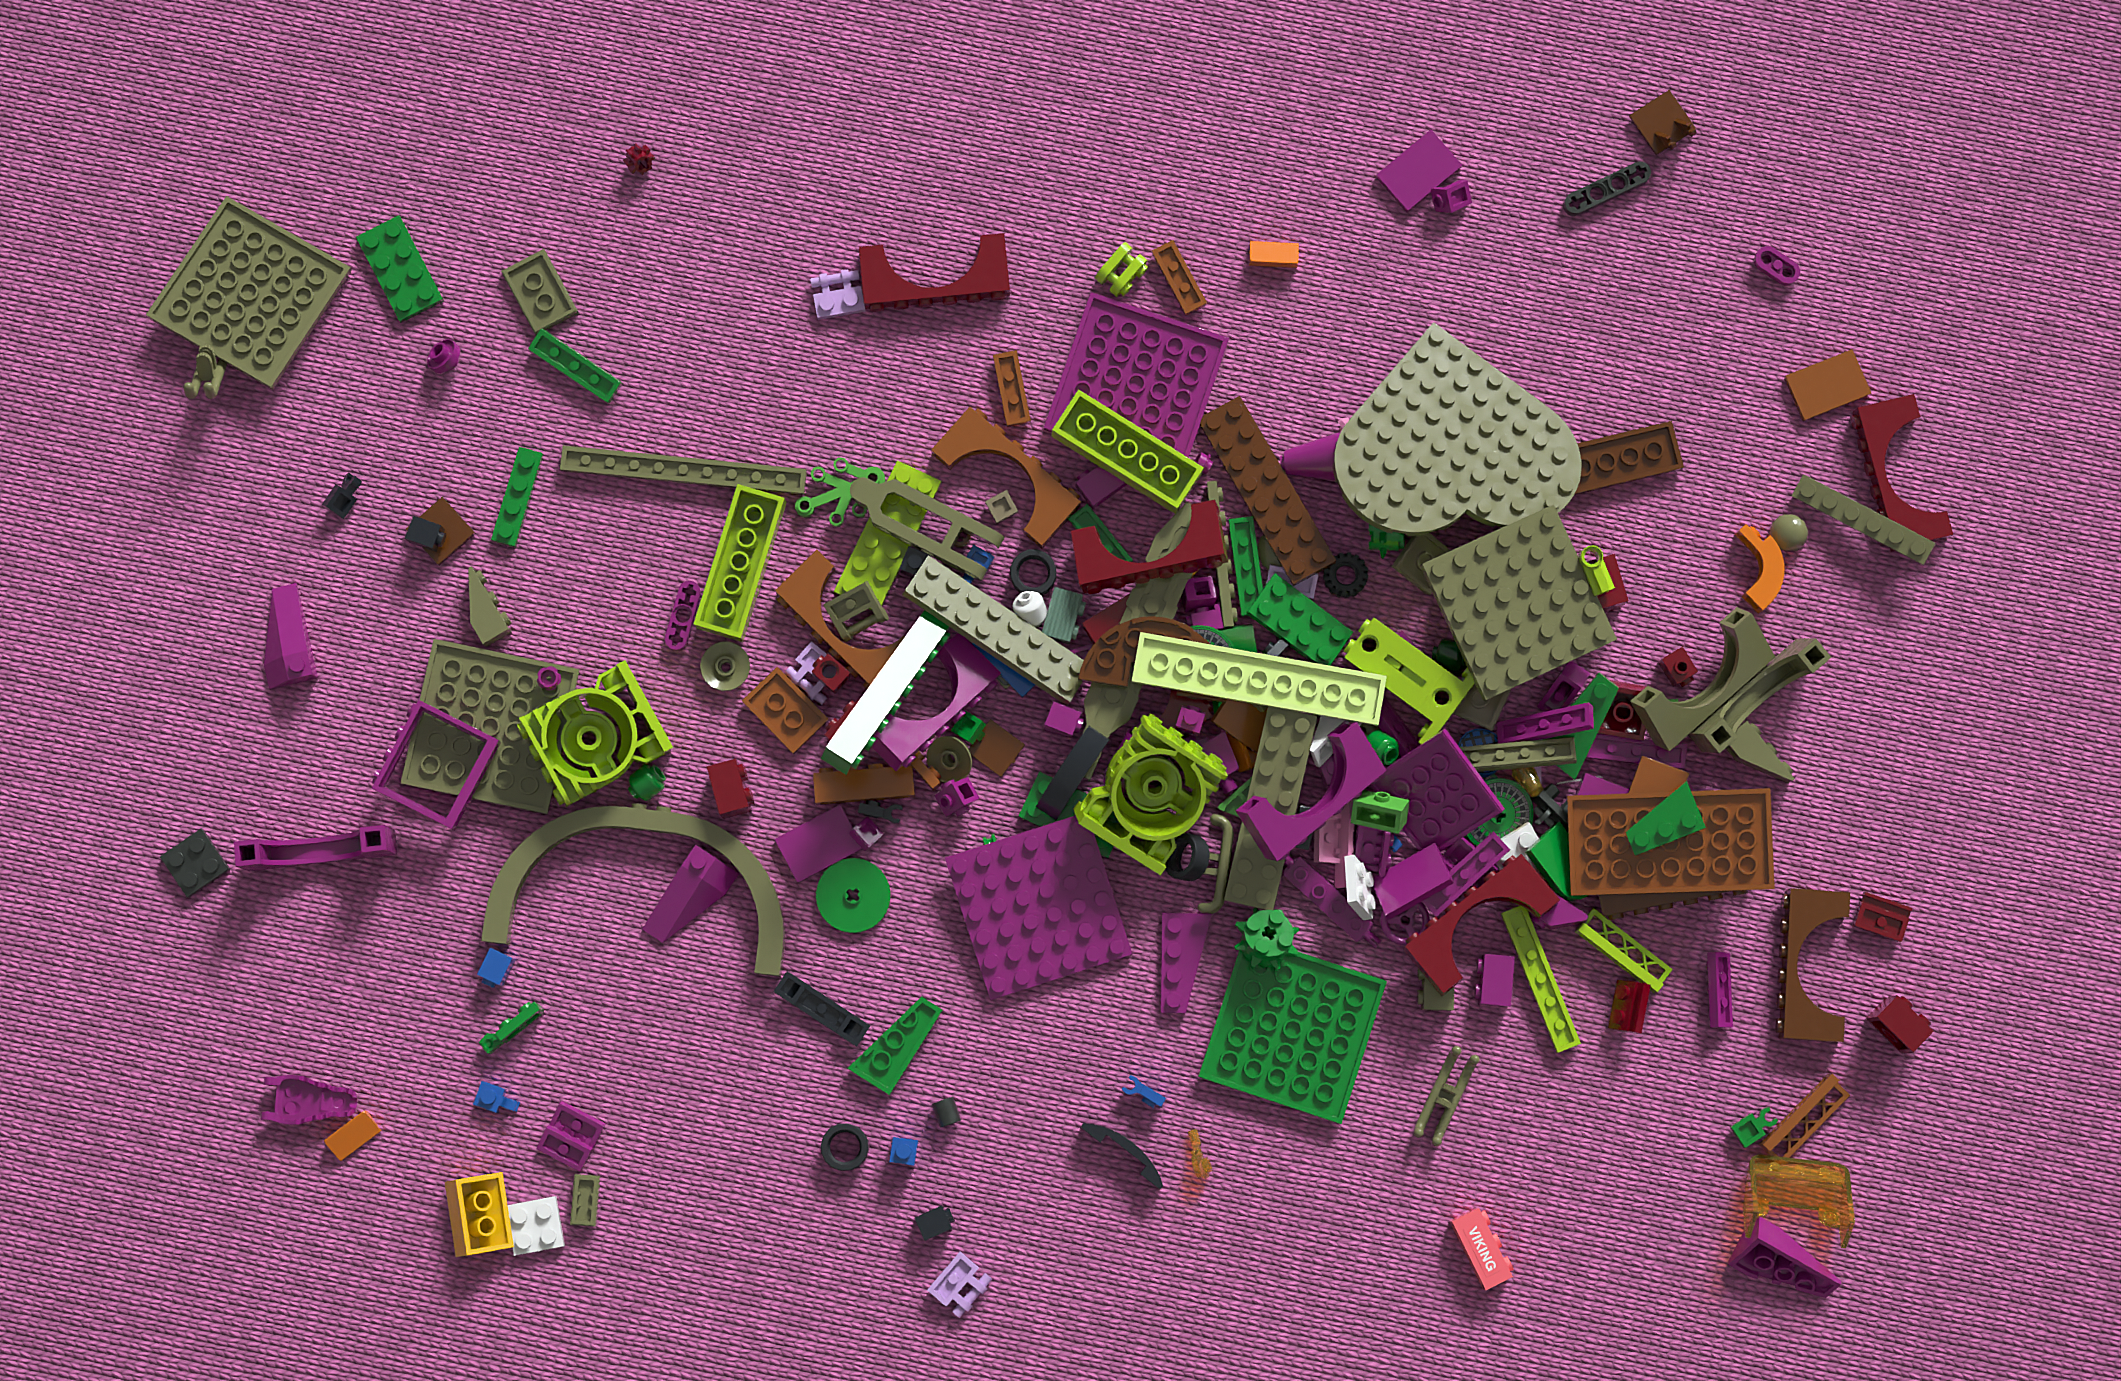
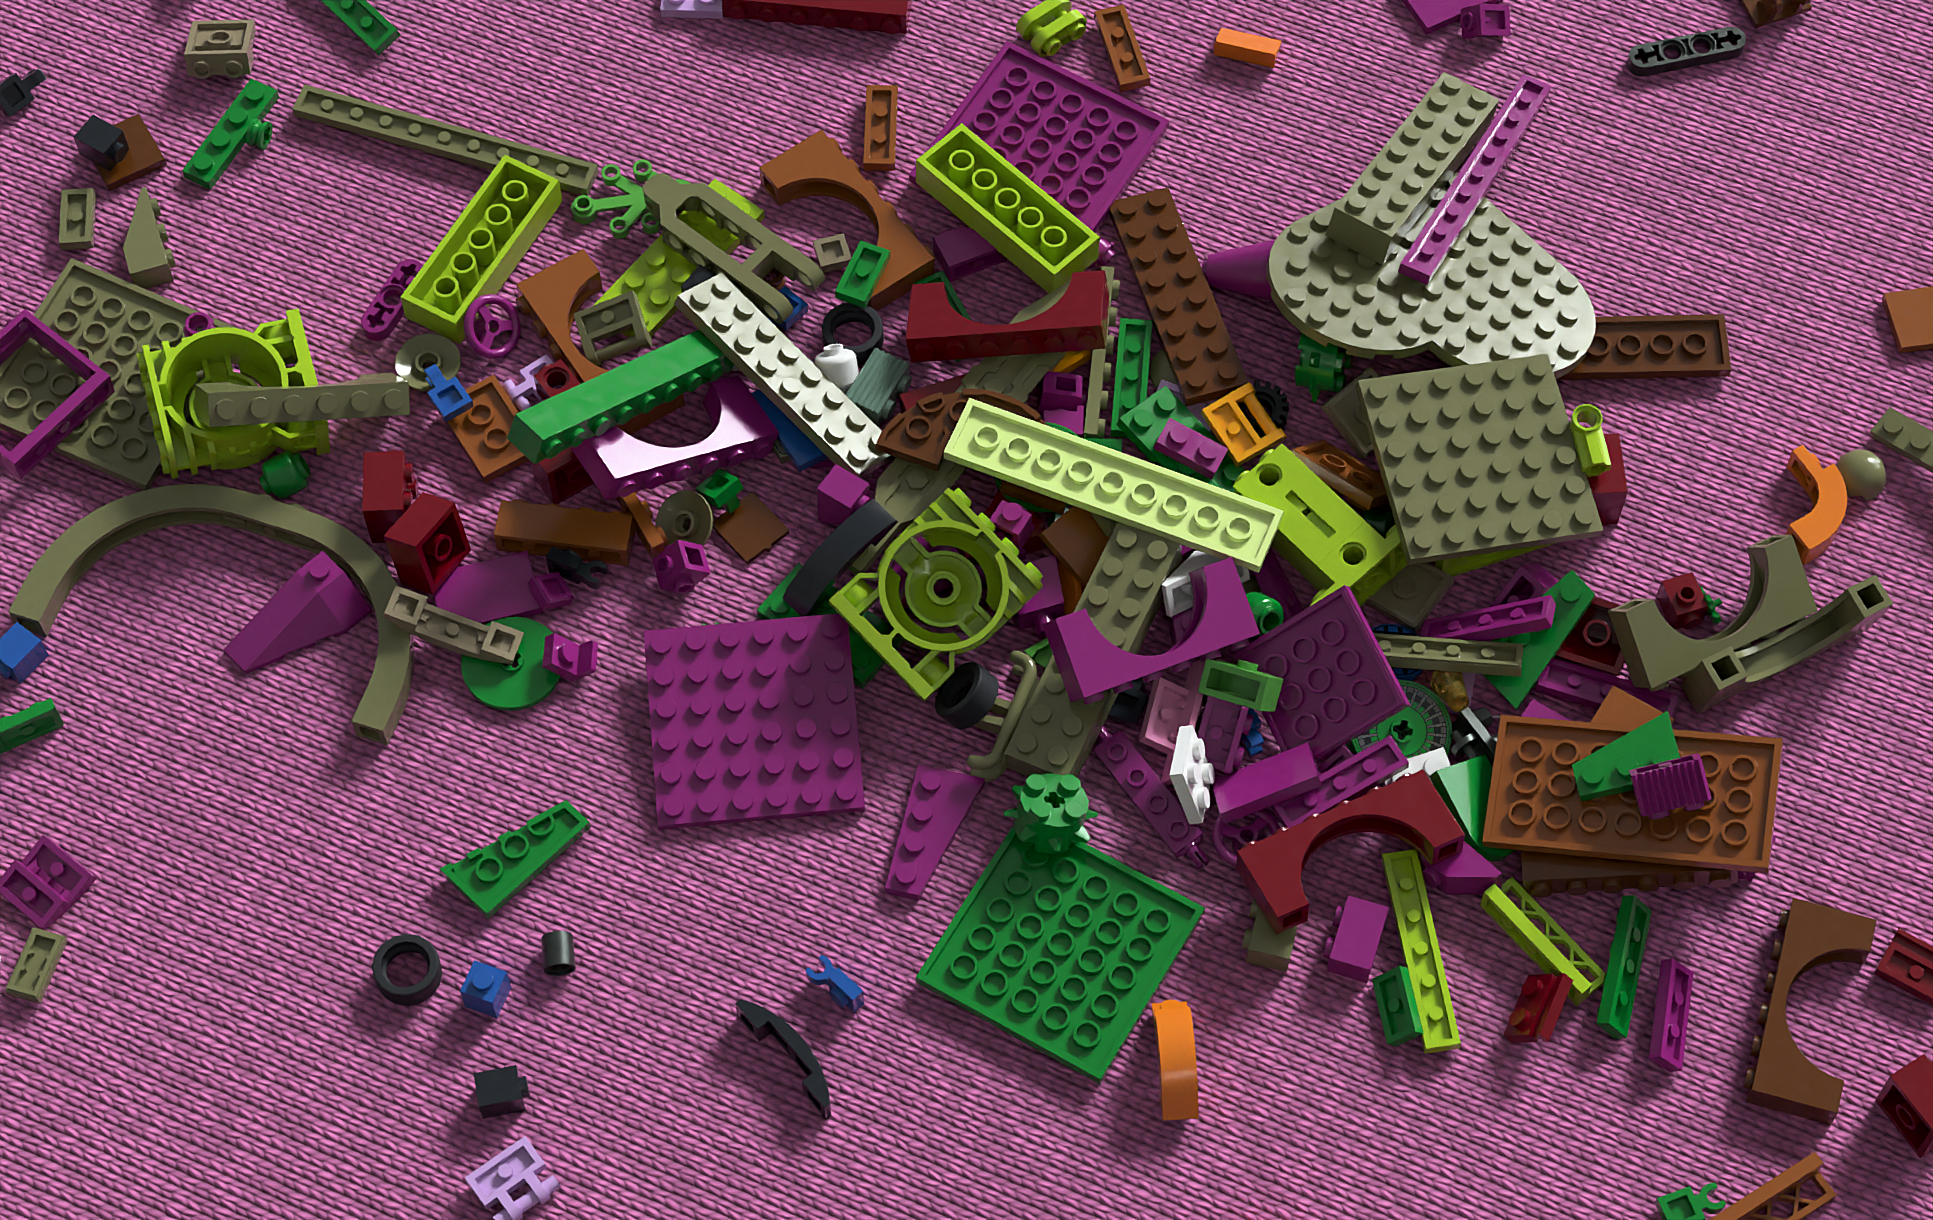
camera: 15 degrees right, 20 degrees down
(424, 598) = (77, 219): none -> olive plate
(488, 425) = (220, 48): none -> dark tan plate
(540, 495) = (259, 133): none -> green bush
(608, 756) = (243, 405): none -> olive arch
(750, 696) = (446, 396): none -> blue plate
(762, 627) = (477, 326): none -> magenta piece
(770, 822) = (427, 543): none -> dark red brick
(807, 884) = (451, 630): none -> dark tan slope
(821, 1008) = (426, 788): black slope -> none
(895, 885) = (569, 658): none -> magenta bracket
(1032, 531) = (862, 274): none -> green plate
(1201, 1165) = (890, 1094): clear yellow plate -> none
(1305, 625) = (1190, 448): none -> magenta plate
(1332, 601) = (1235, 430): none -> light orange plate
(1389, 1097) = (1176, 1060): none -> orange arch
(1416, 619) = (1344, 474): none -> dark orange plate
(1424, 353) = (1412, 168): none -> brick
(1445, 1095) = (1257, 1074): olive piece -> none
(1471, 350) = (1474, 180): none -> magenta plate
(1532, 1024) = (1397, 1006): none -> green plate
(1682, 961) = (1624, 967): none -> green plate
(1698, 667) = (1714, 617): none -> green plant
(1698, 842) = (1670, 786): none -> magenta brick
(1755, 753) = (1761, 713): olive slope -> none
(1777, 264) = (1893, 170): magenta plate -> none

